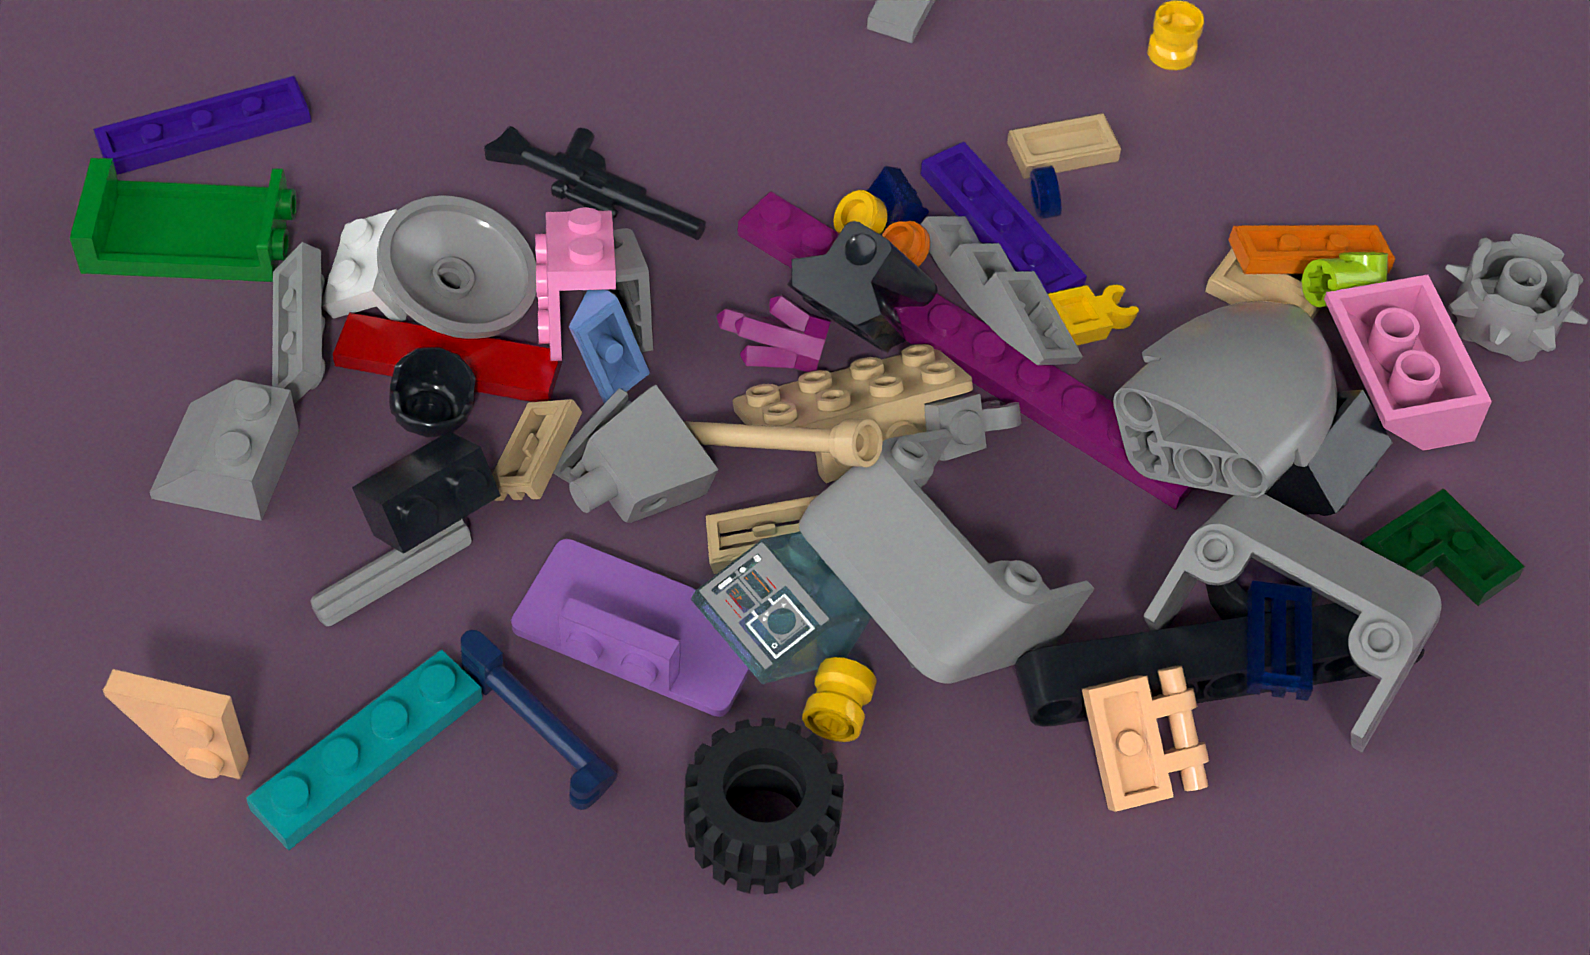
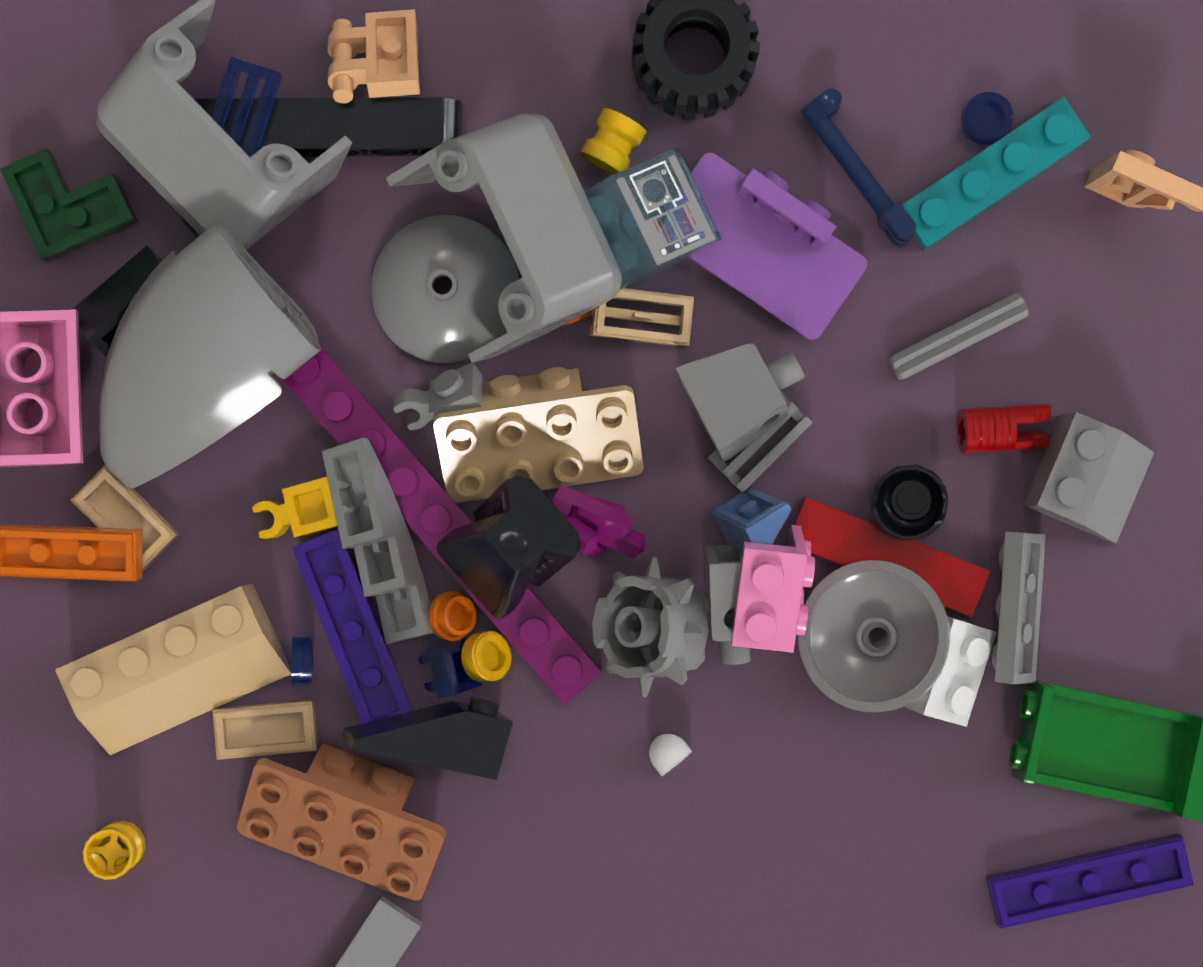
camera: 165 degrees left, 35 degrees up
(323, 483) = (996, 428): none -> red hinge
(380, 808) = (987, 118): none -> clear blue tile
(426, 491) = (926, 393): black brick -> none
(535, 448) = (821, 433): tan tile -> none
(592, 183) = (735, 765): black piece -> none
(654, 167) = (667, 752): none -> white hinge
(696, 241) = (651, 627): none -> light grey brick
(851, 442) = (569, 317): tan piece -> none
(897, 134) = (442, 736): none -> black slope
(961, 89) = (344, 819): none -> nougat bracket
(1035, 526) = (448, 324): none -> light grey dish
(1173, 178) = (175, 670): none -> tan slope
(1340, 273) = (47, 494): lime piece -> none

